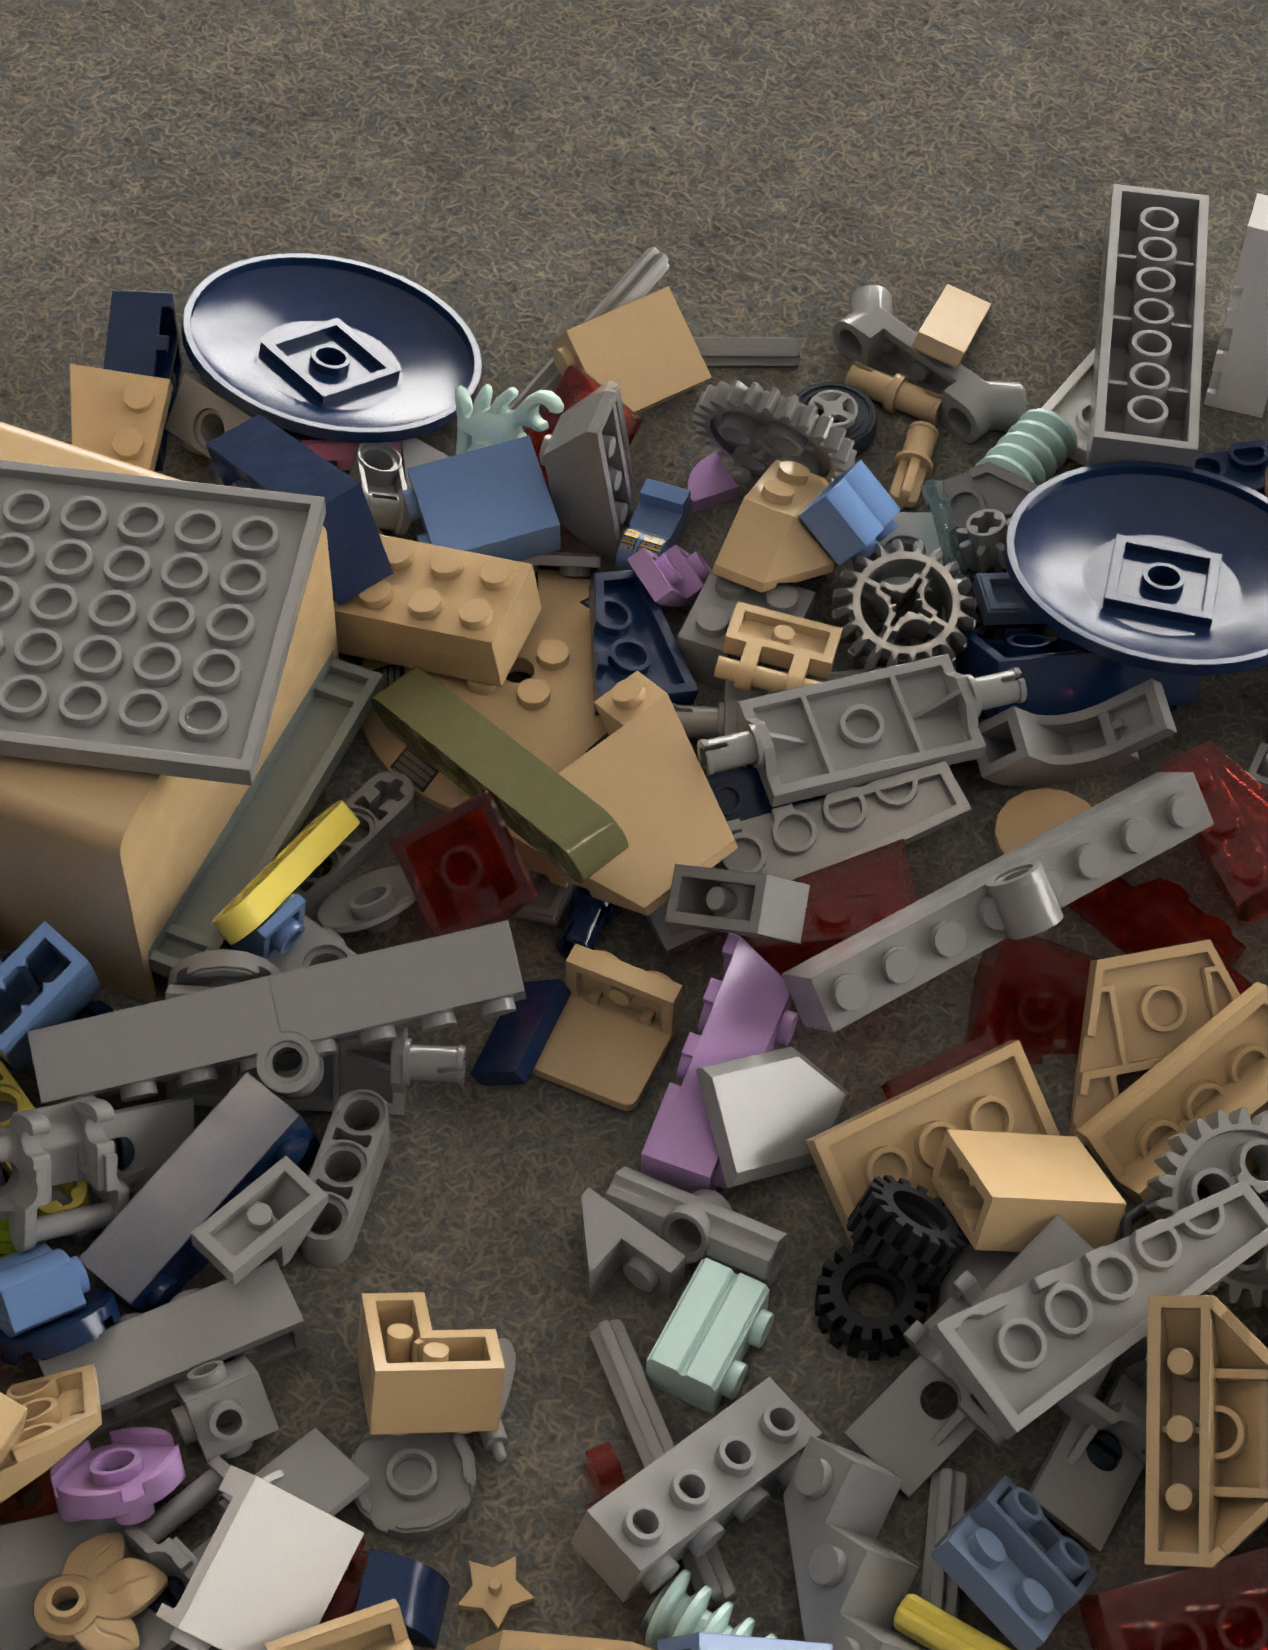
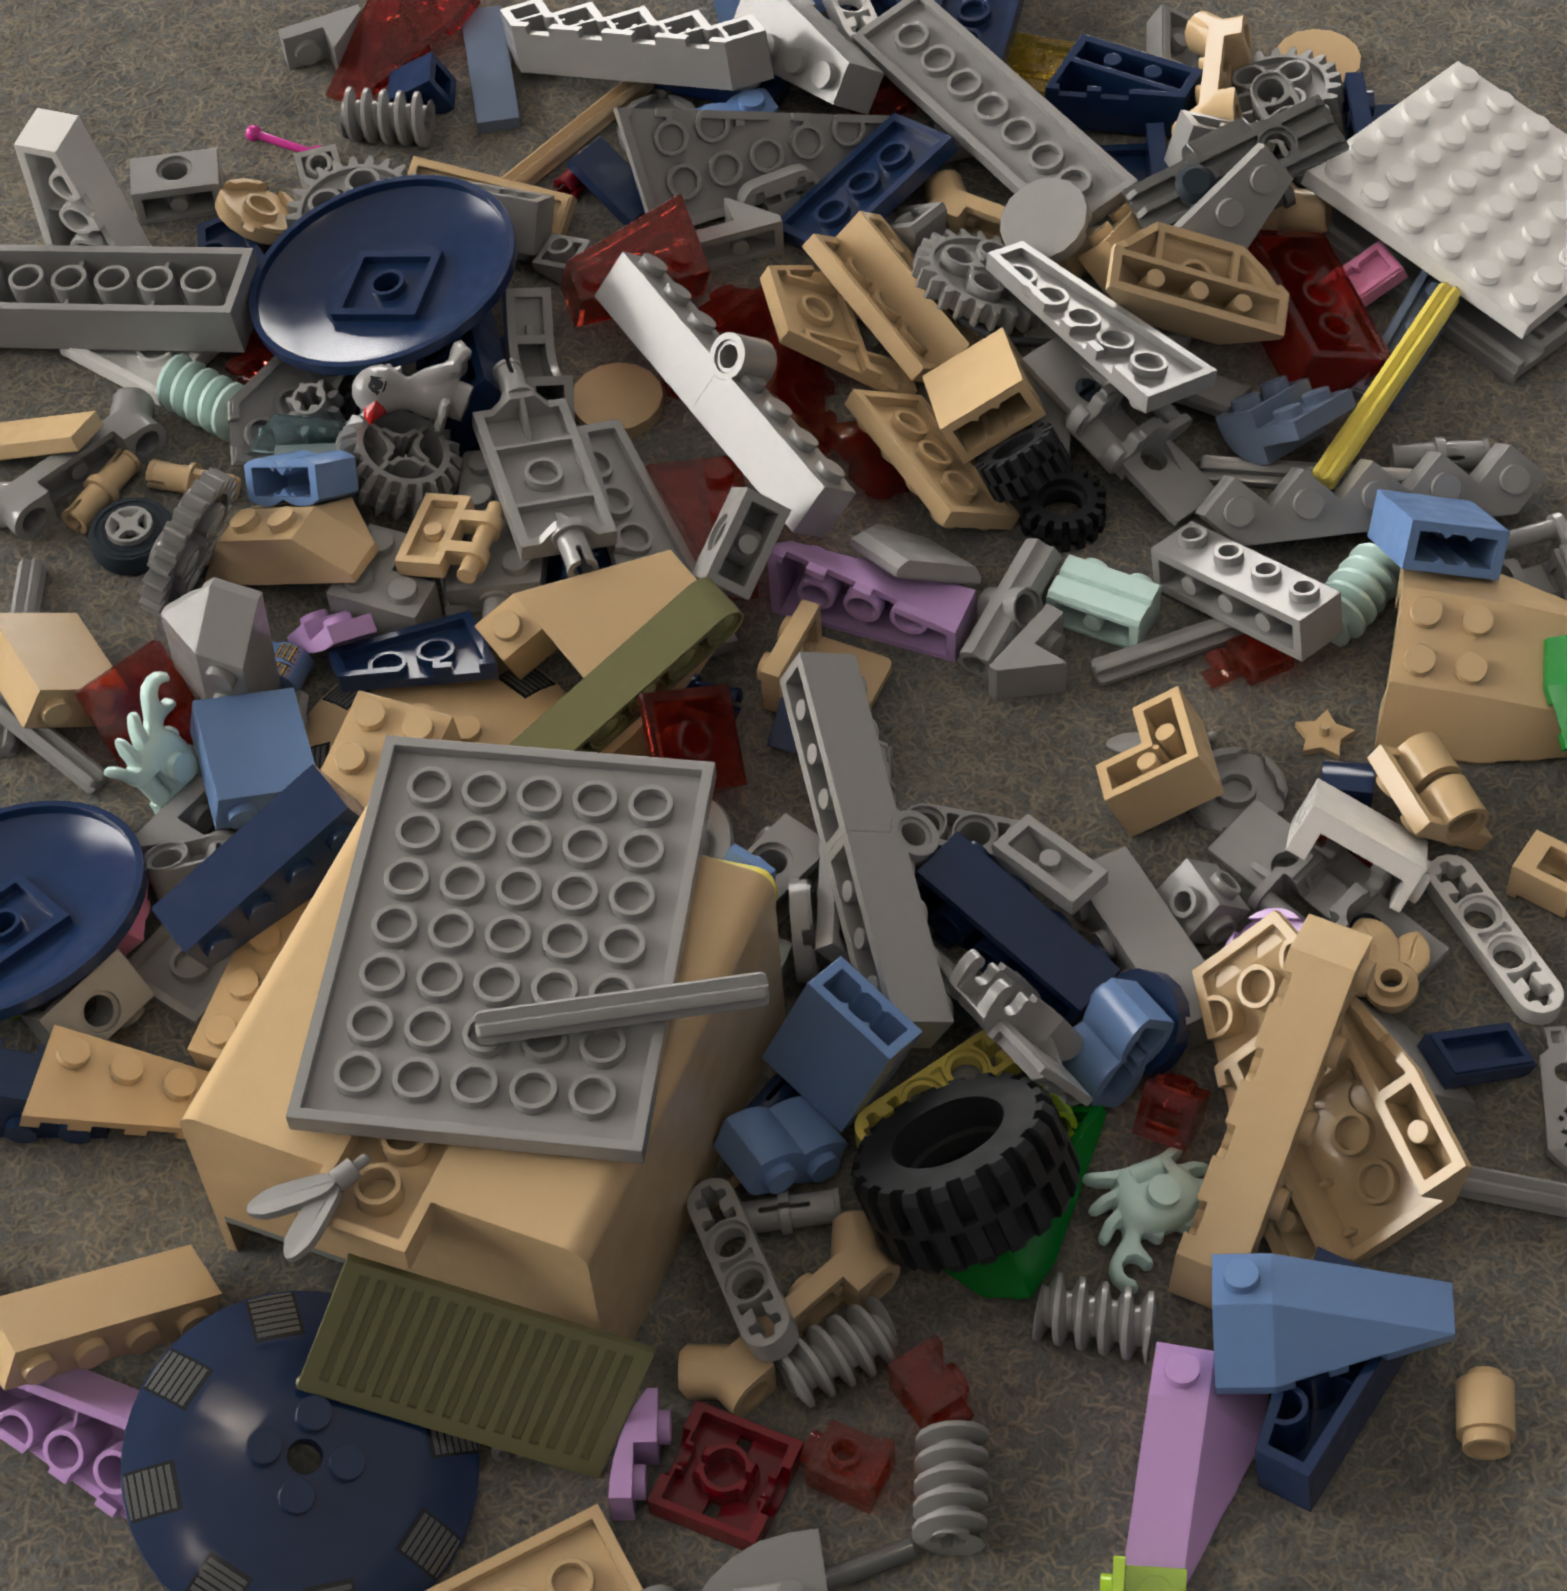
camera: 85 degrees left, 0 degrees up
(968, 611) = (429, 392): none -> light grey animal

